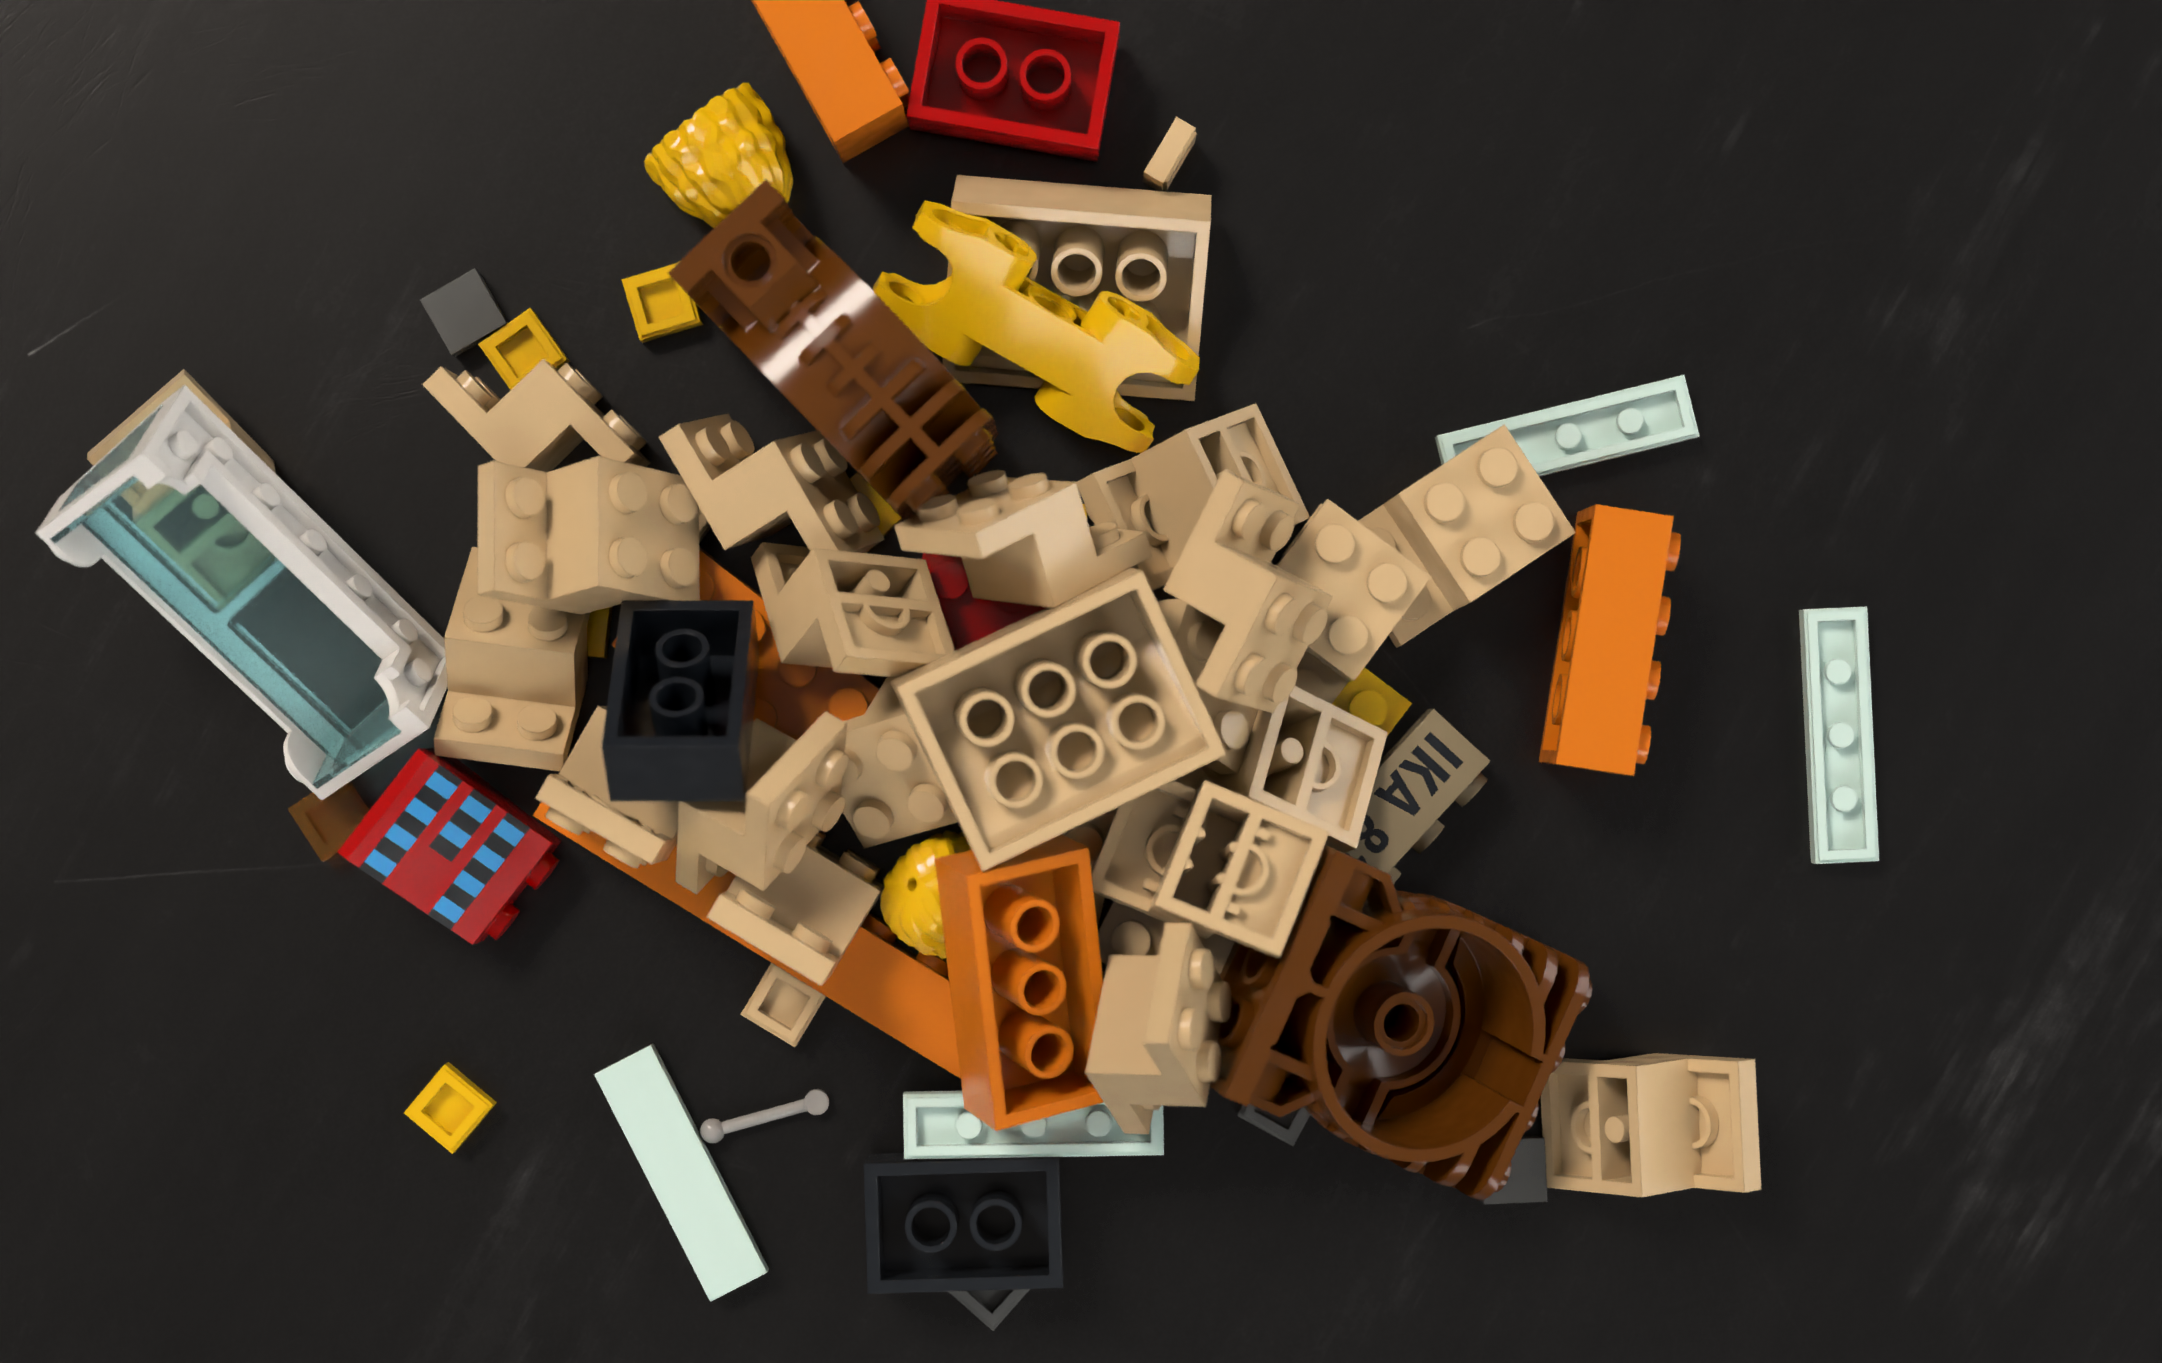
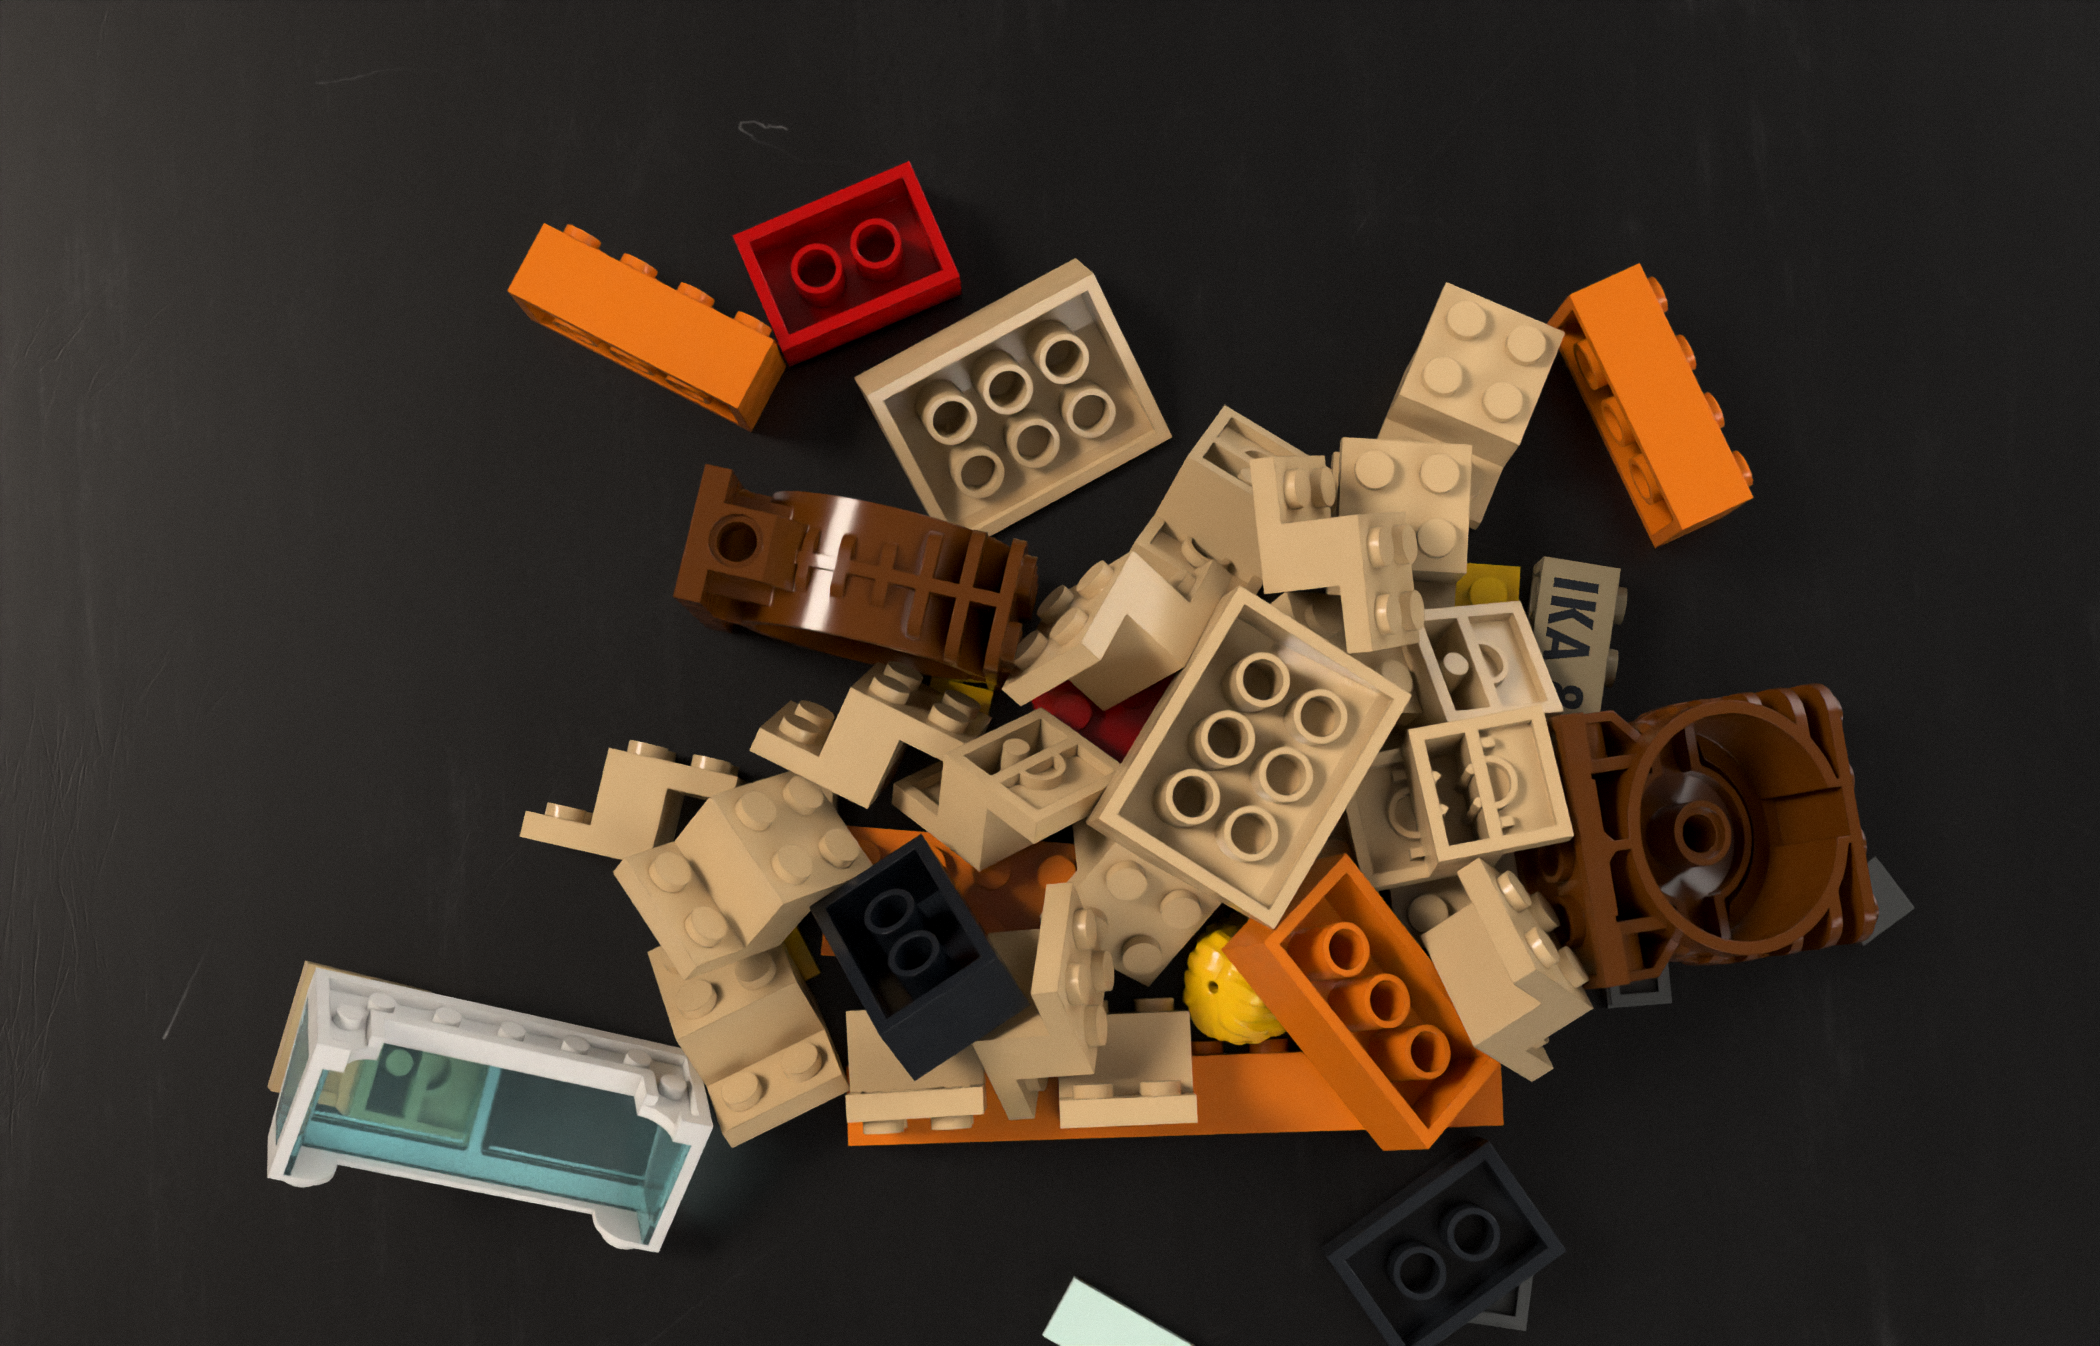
camera: 35 degrees left, 5 degrees down
(330, 820) = (679, 1266): clear orange tile -> none
(452, 846) = (796, 1218): red slope -> none
(464, 312) = (514, 760): dark grey tile -> none
(521, 346) = (580, 759): yellow tile -> none
(659, 304) = (675, 643): yellow tile -> none
(721, 156) = (645, 489): yellow hair -> none
(783, 1005) = (1163, 1167): tan tile -> none
(815, 1103) = (1245, 1235): light grey hinge -> none
(942, 1129) = (1375, 1180): light aqua tile -> none
(998, 307) = (1045, 456): yellow piece -> none
(1170, 155) = (1019, 247): tan tile -> none
(1592, 427) = (1514, 244): light aqua tile -> none
(1652, 1125) = (1963, 783): tan bracket -> none
(1839, 735) = (1885, 364): light aqua tile -> none

